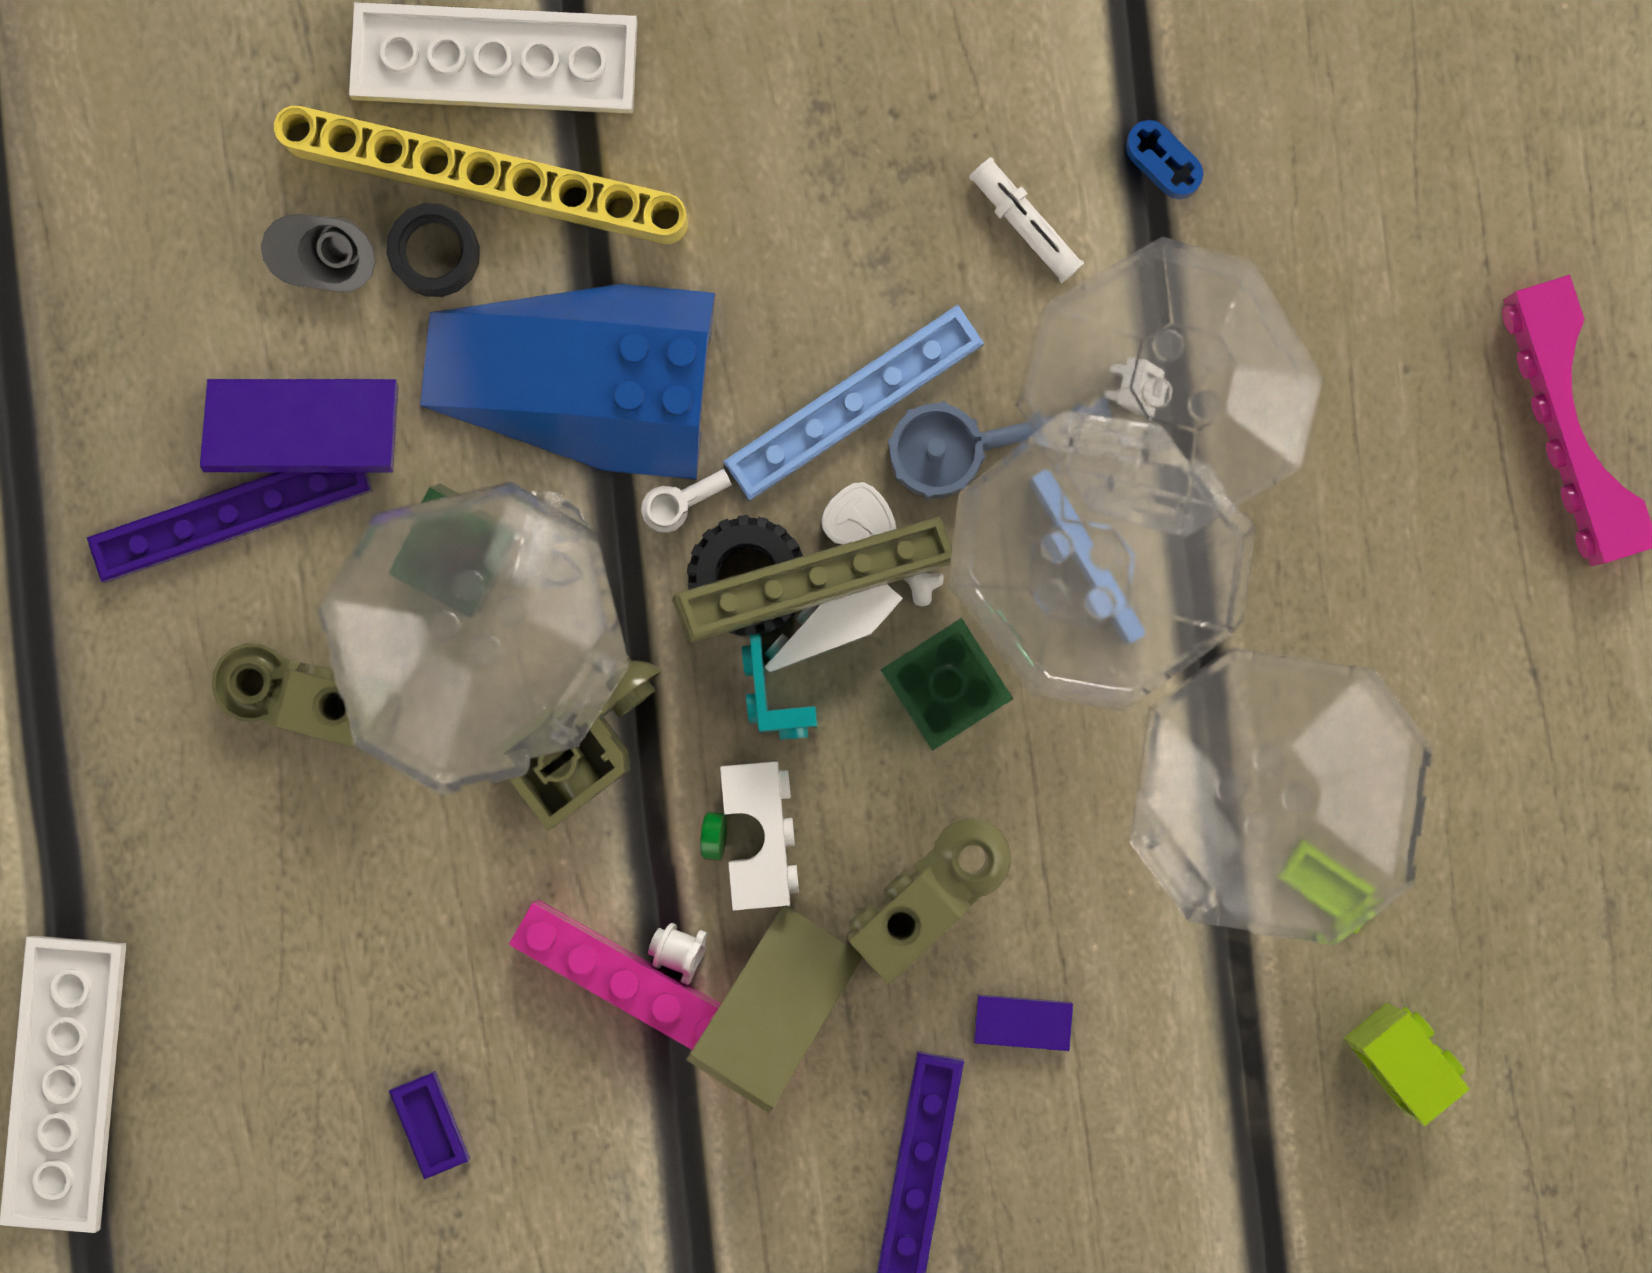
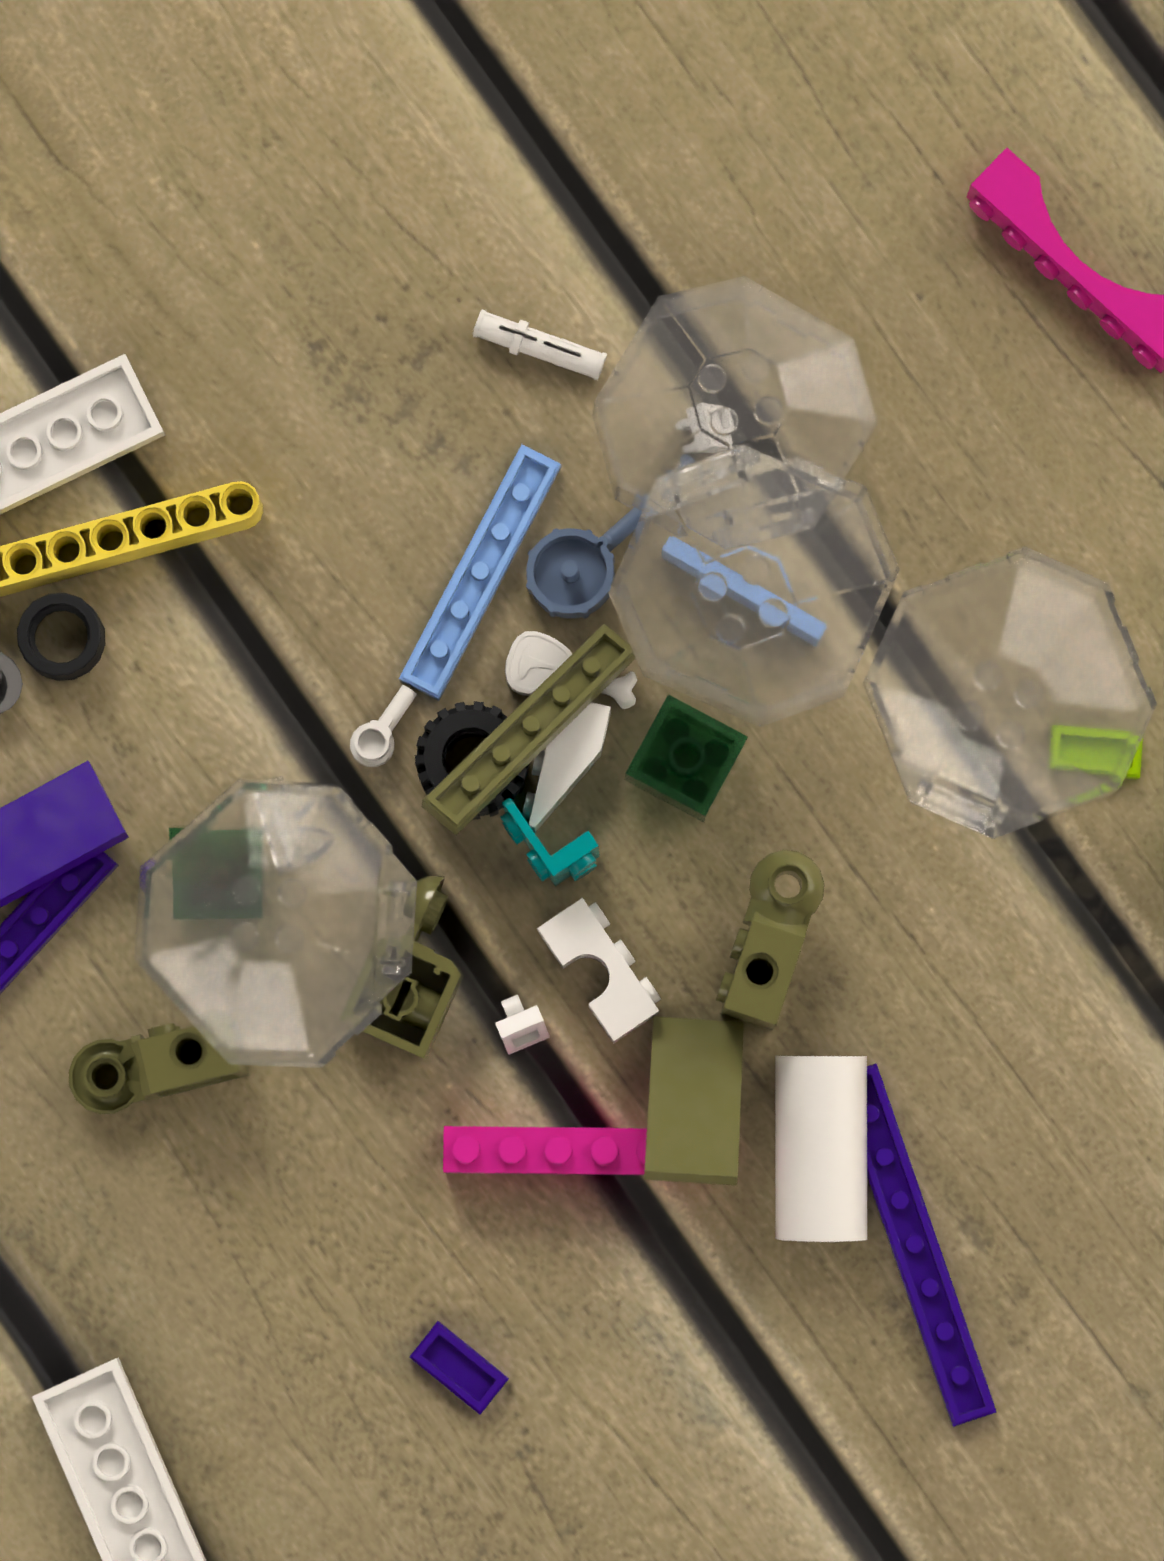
camera: 25 degrees left, 5 degrees down
(580, 374) = (240, 672): blue wedge -> none
(656, 847) = (522, 1026): none -> white tile
(678, 951) = (587, 1103): white brick -> none
(713, 836) = (563, 991): green tile -> none
(868, 1113) = (821, 1148): none -> white brick
(1023, 1022) = (907, 1004): dark purple tile -> none
(1172, 151) = (622, 244): blue beam -> none

